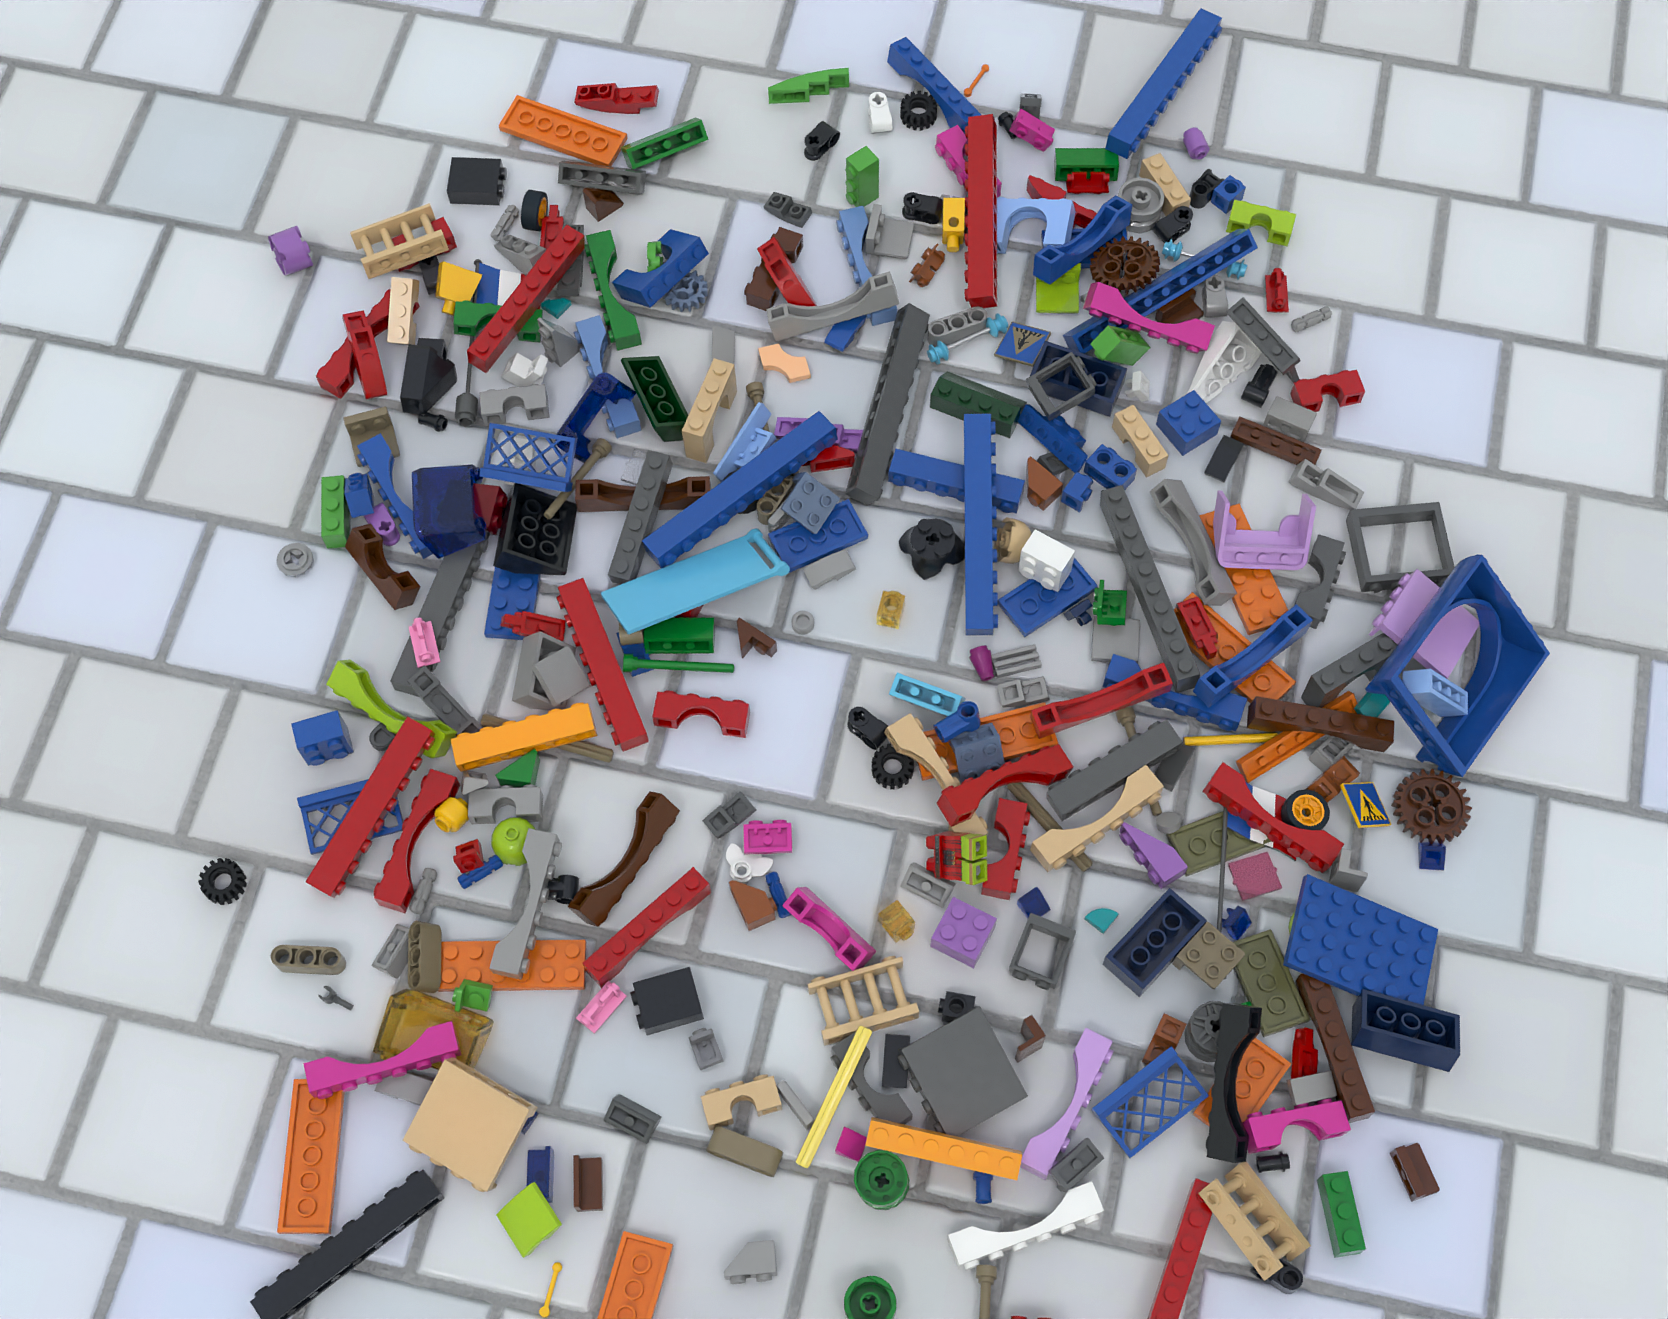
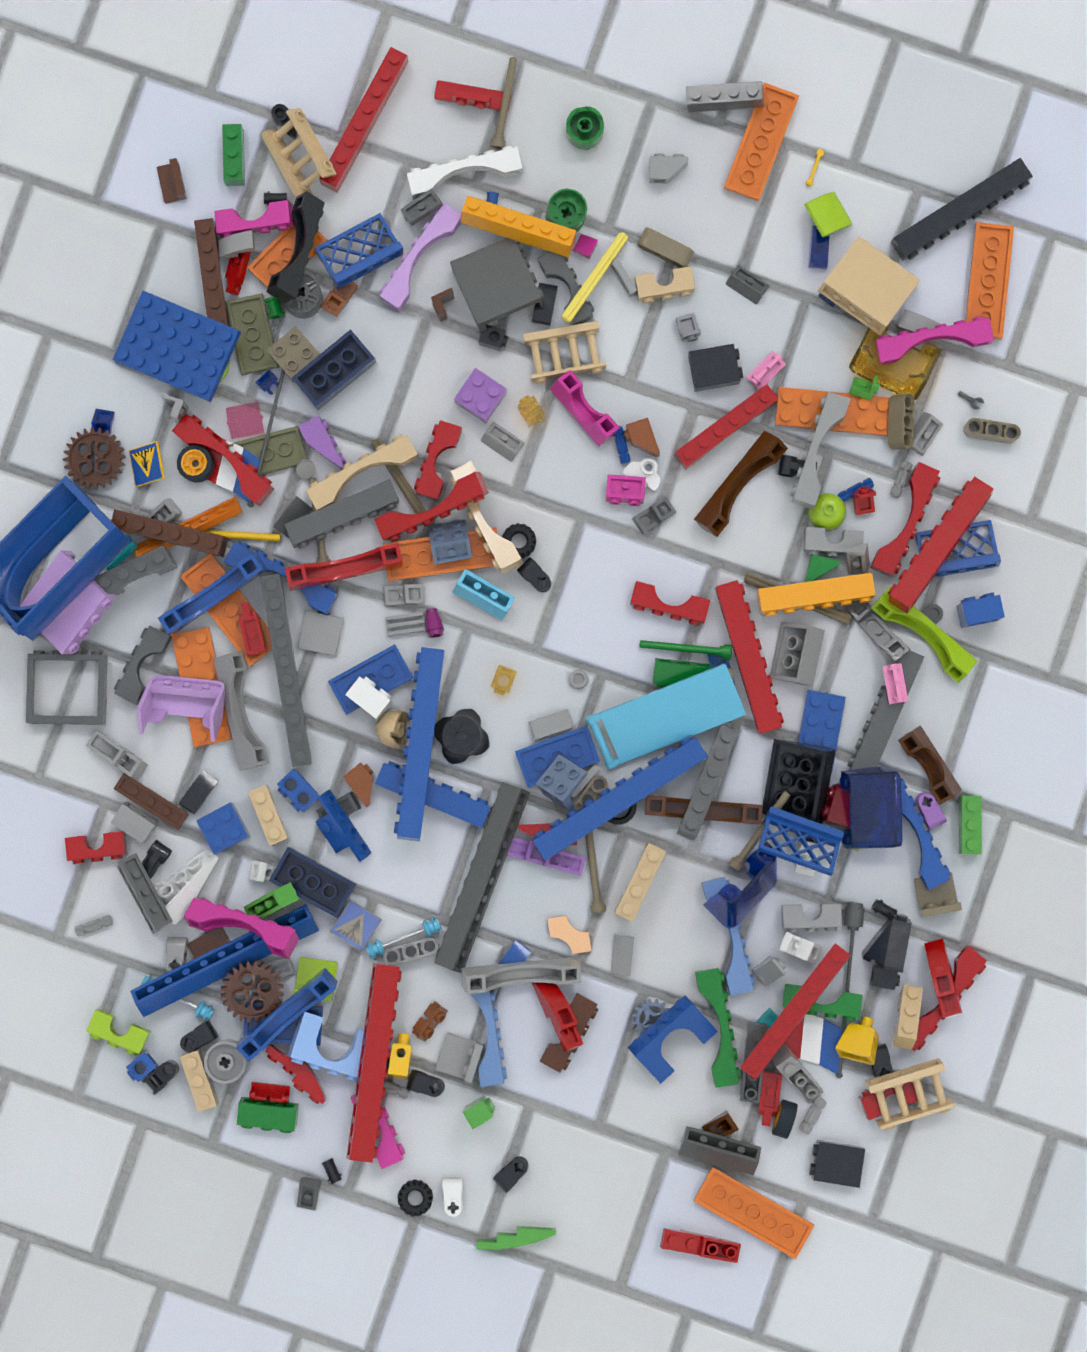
camera: 175 degrees left, 20 degrees up
(230, 892) = (1068, 495): black tyre -> none
(290, 250) = (1011, 1098): medium lavender brick -> none
(298, 550) = (1013, 788): light grey gear -> none
(359, 495) = (948, 833): blue brick -> none
(451, 814) = (876, 537): yellow head -> none
(528, 623) = (802, 694): red hinge -> none
(560, 676) = (783, 645): light grey tile -> none
(588, 1184) = (783, 238): reddish brown panel -> none
(654, 260) = (676, 1052): bright green plate -> none
(657, 396) = (685, 902): dark green slope -> none
(664, 143) = (658, 1183): green brick -> none
(748, 443) = (608, 845): light blue bracket -> none
(751, 636) = (626, 668): reddish brown slope -> none
(786, 210) = (550, 1100): dark grey slope -> none
(909, 61) = (410, 1243): blue arch -> none
(957, 856) = (477, 451): hips -> none
(958, 722) = (465, 561): blue piece -> none
(962, 396) = (402, 873): dark green slope -> none
(968, 91) = (365, 1217): orange hinge -> none
(1032, 130) = (311, 1159): dark pink bracket -> none
(1033, 383) = (349, 857): dark grey window -> none
(1033, 903) = (422, 414): clear blue slope -> none
(1050, 928) = (412, 389): dark grey window -> none
(1077, 491) = (329, 773): blue brick -> none
(1079, 612) = (347, 659): dark blue tile -> none
(1101, 918) = (370, 397): teal tile -> none
(1109, 606) = (319, 659): green bracket -> none
(1163, 84) = (179, 1194): blue brick -> none
(1195, 143) = (161, 1127): medium lavender brick -> none
(1276, 291) = (118, 956): red hinge -> none
(1330, 780) = (169, 487): dark orange slope -> none
(1405, 1030) = (157, 278): dark blue brick -> none
(1436, 692) = (74, 535): light blue brick -> none

